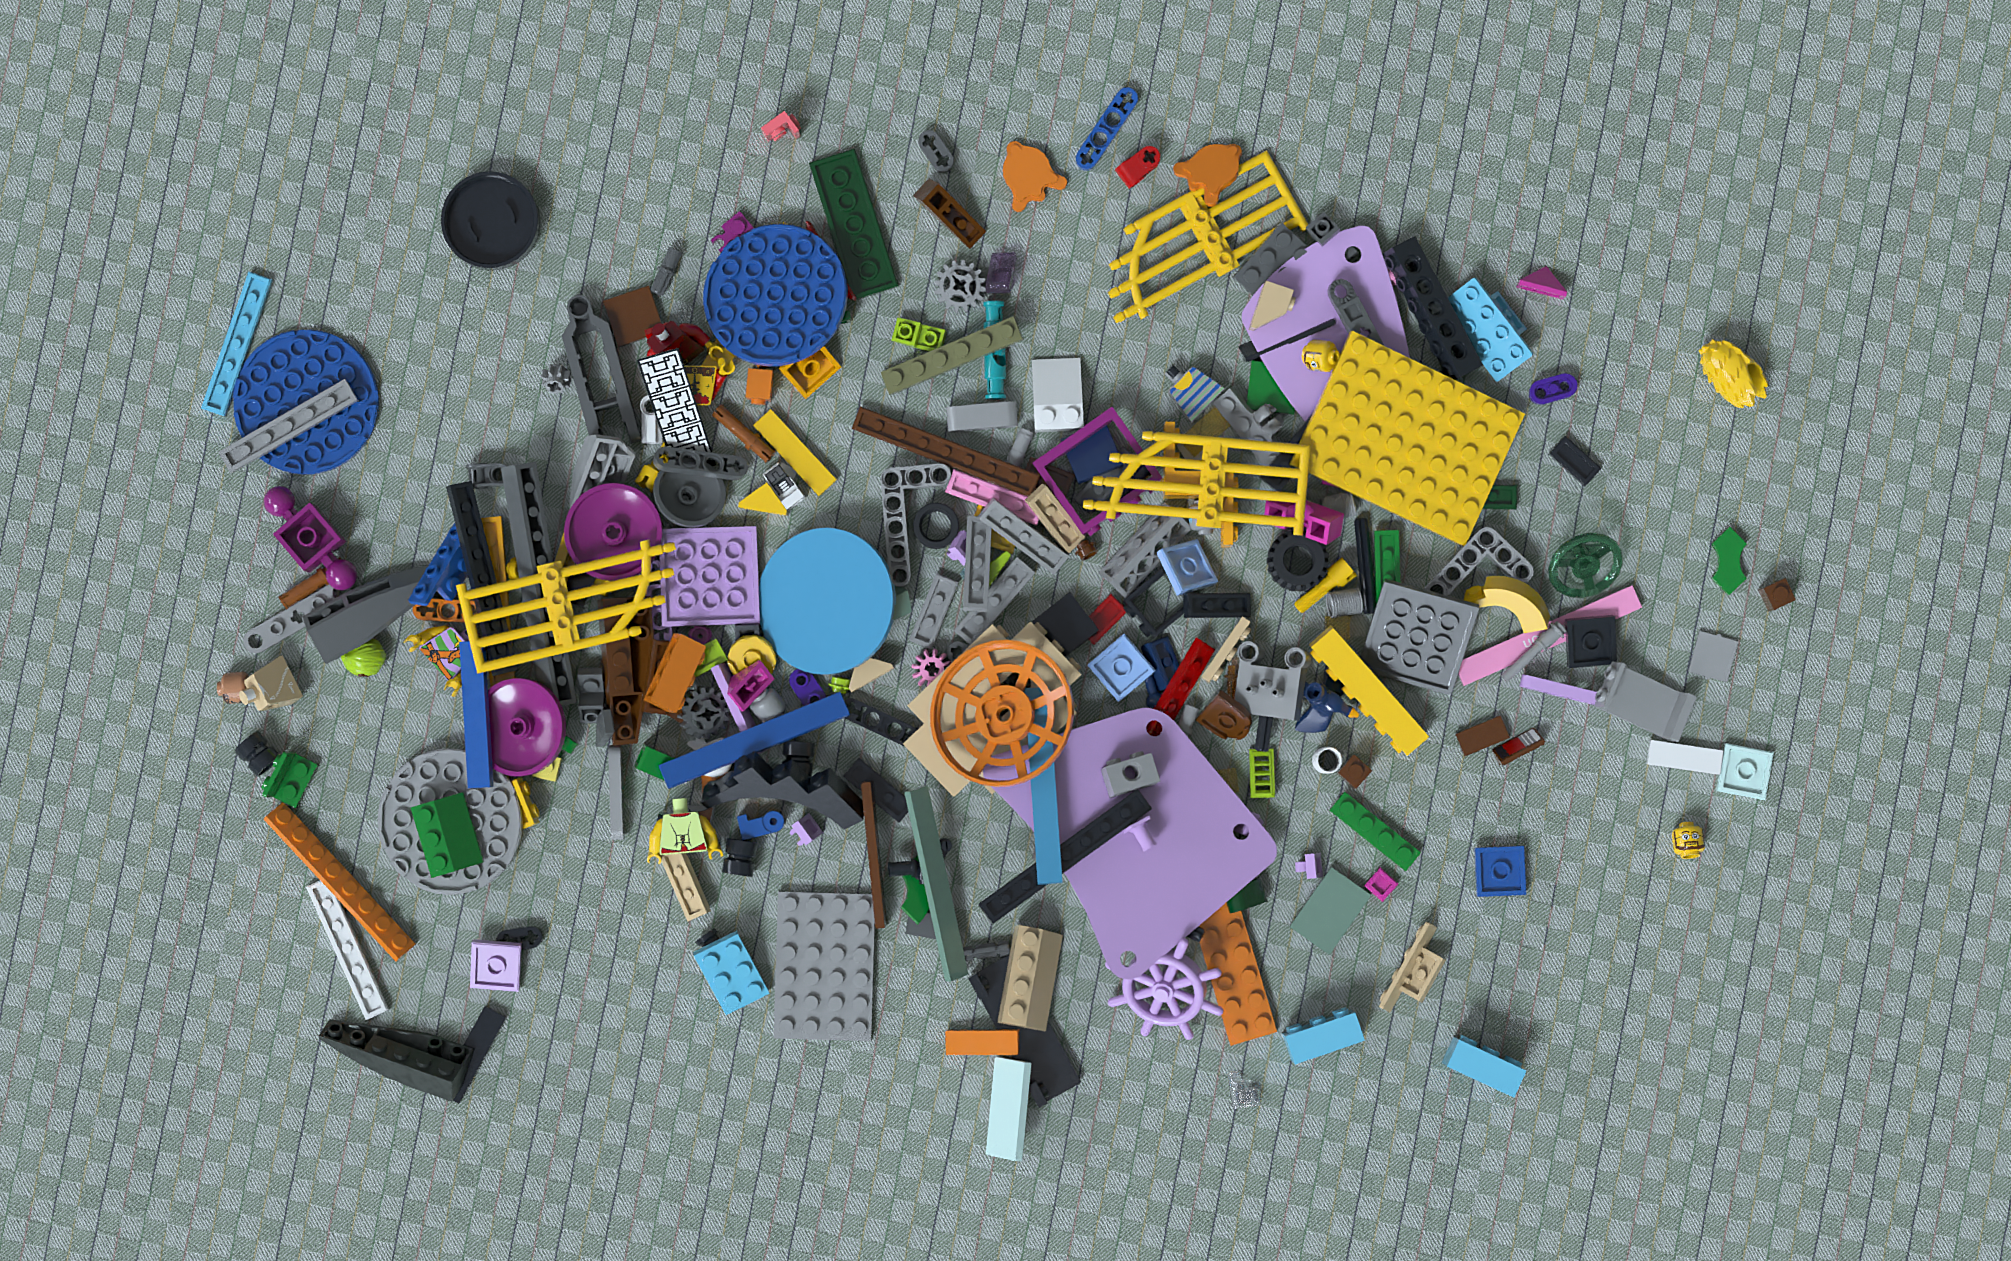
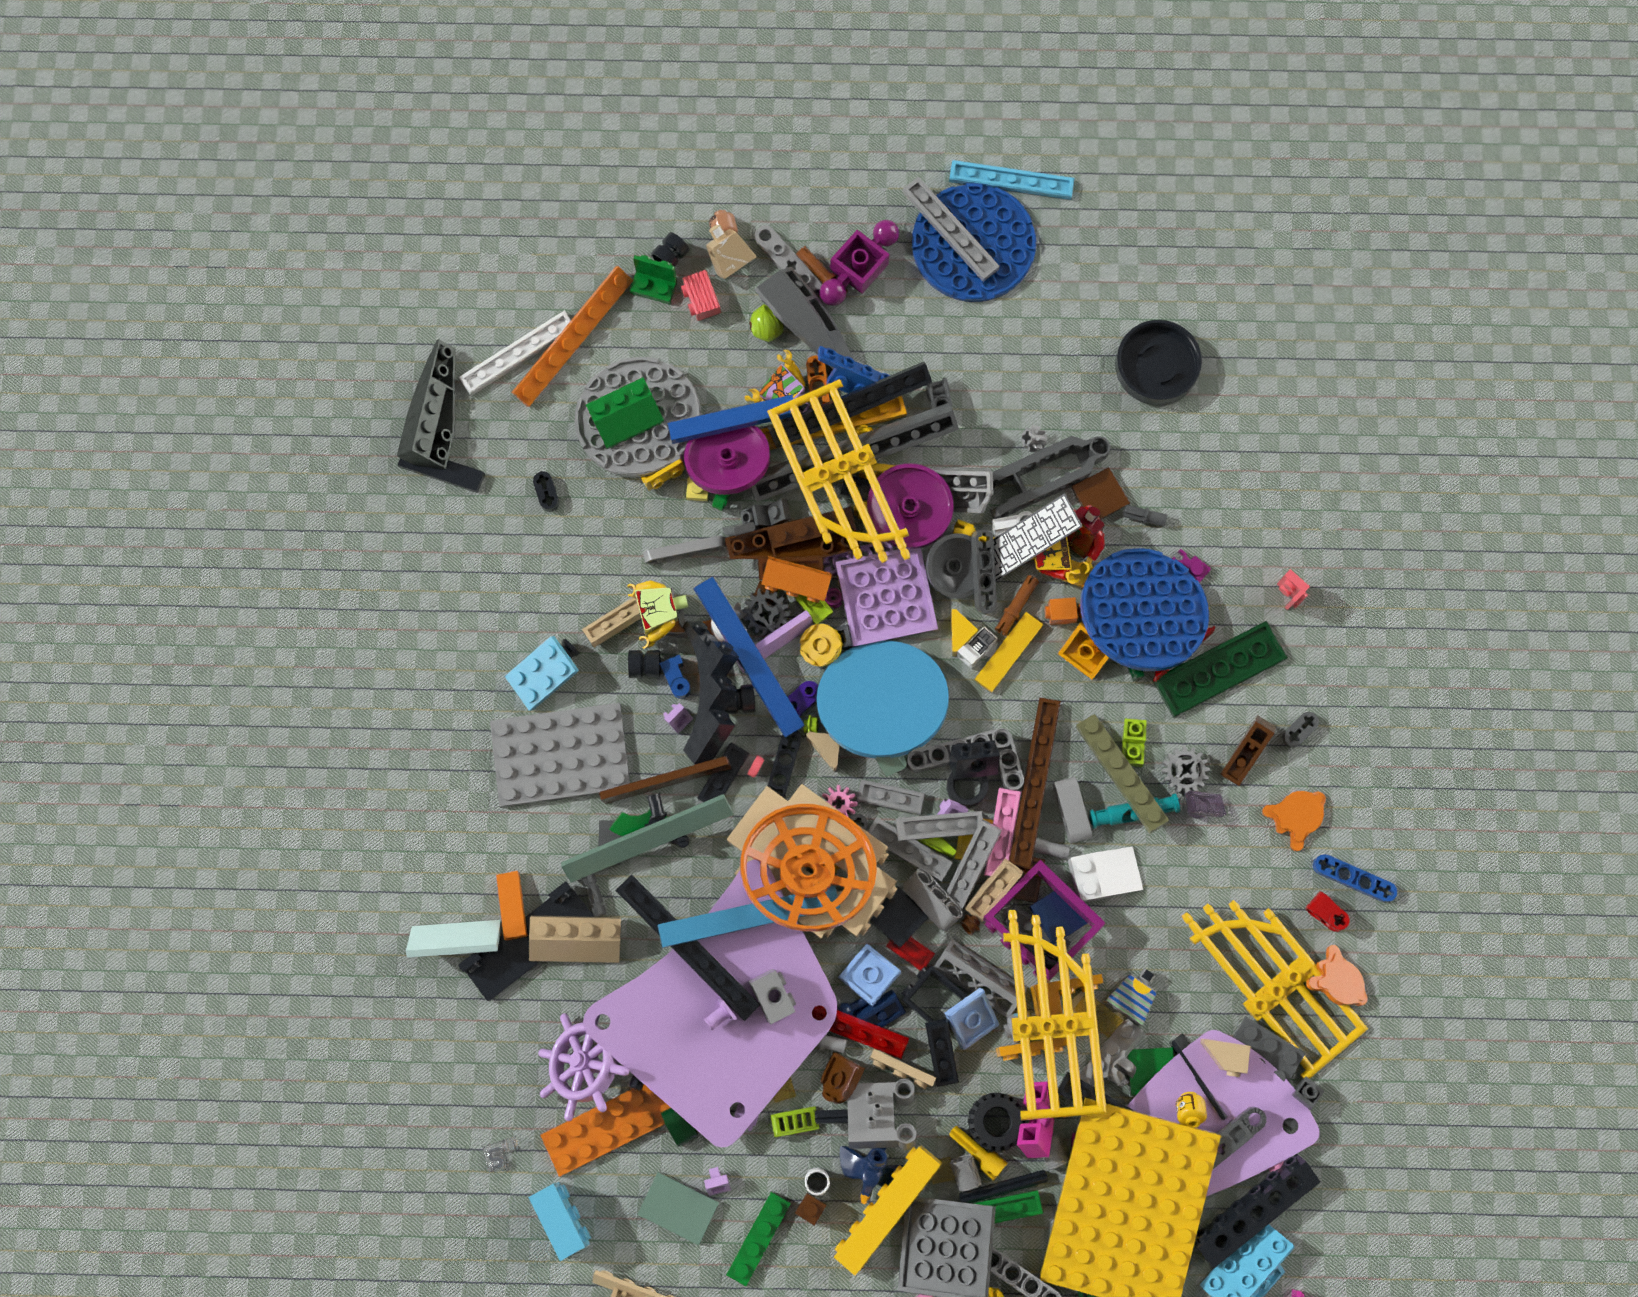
camera: 75 degrees right, 10 degrees down
(317, 726) = (701, 295): none -> coral brick
(495, 965) = (520, 475): lavender tile -> none
(650, 759) = (719, 571): green torso -> none
(749, 684) = (797, 645): dark pink slope -> none
(768, 705) = (783, 664): light grey head -> none
(875, 752) = (756, 766): none -> coral tile
(911, 513) = (974, 759): none -> black brick
(1053, 585) = (932, 899): none -> light grey beam
(1231, 676) = (875, 1078): clear orange piece -> none
(1381, 884) = (710, 1253): dark pink tile -> none

